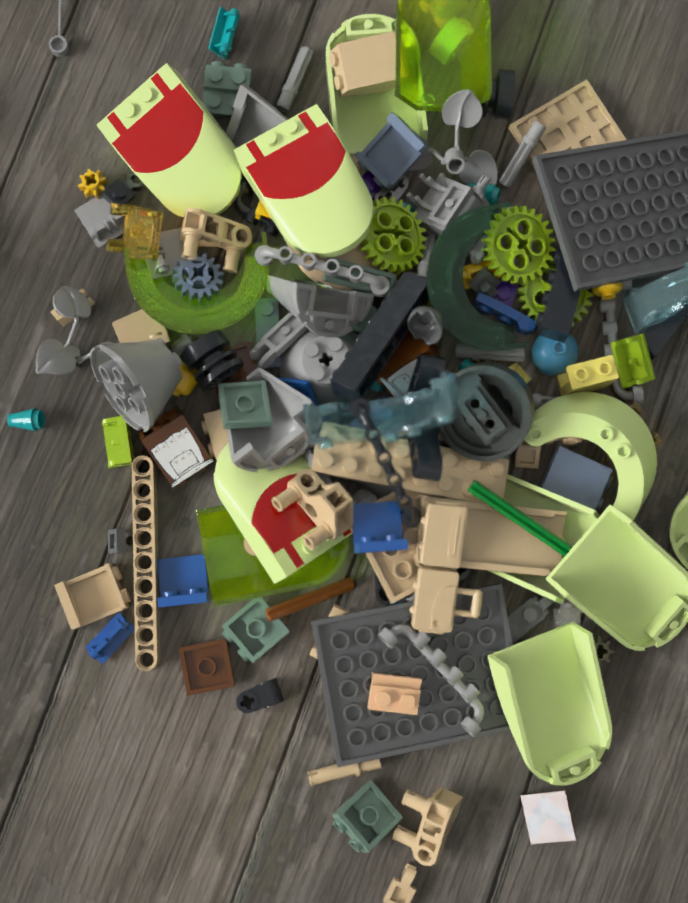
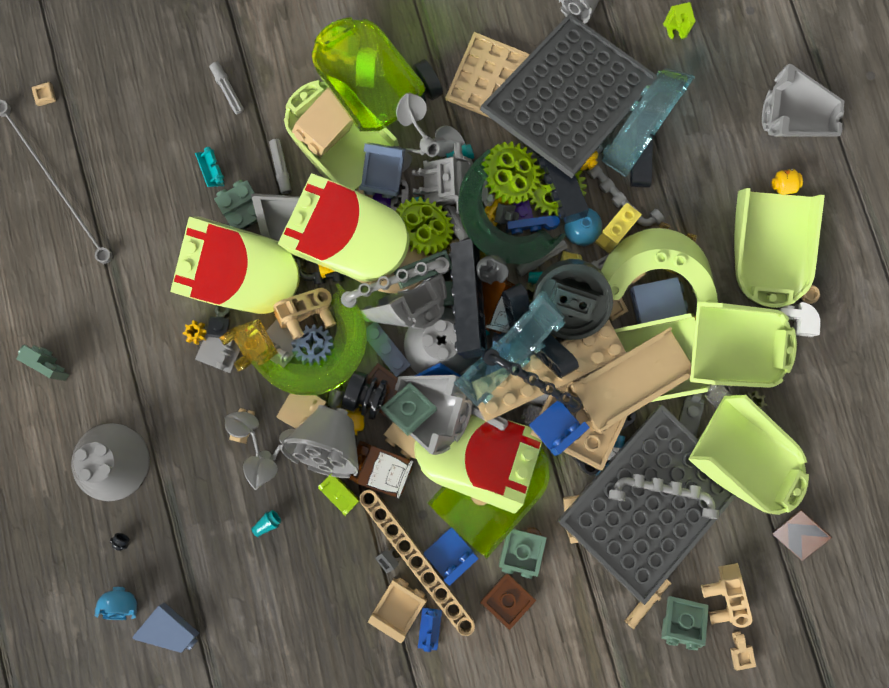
camera: 30 degrees left, 0 degrees up
(264, 696) = (560, 590): black piece -> none
(278, 340) = (397, 348): light grey hinge -> none
(309, 599) = (543, 506): dark orange axle -> none
(328, 501) = (514, 433): tan piece -> none
(394, 693) = (646, 528): light nougat plate -> none
(436, 583) = (622, 436): tan piece -> none
(519, 518) = (644, 353): green axle -> none
(528, 143) = (468, 110): light grey axle -> none
(633, 360) = (639, 195): lime hinge -> none

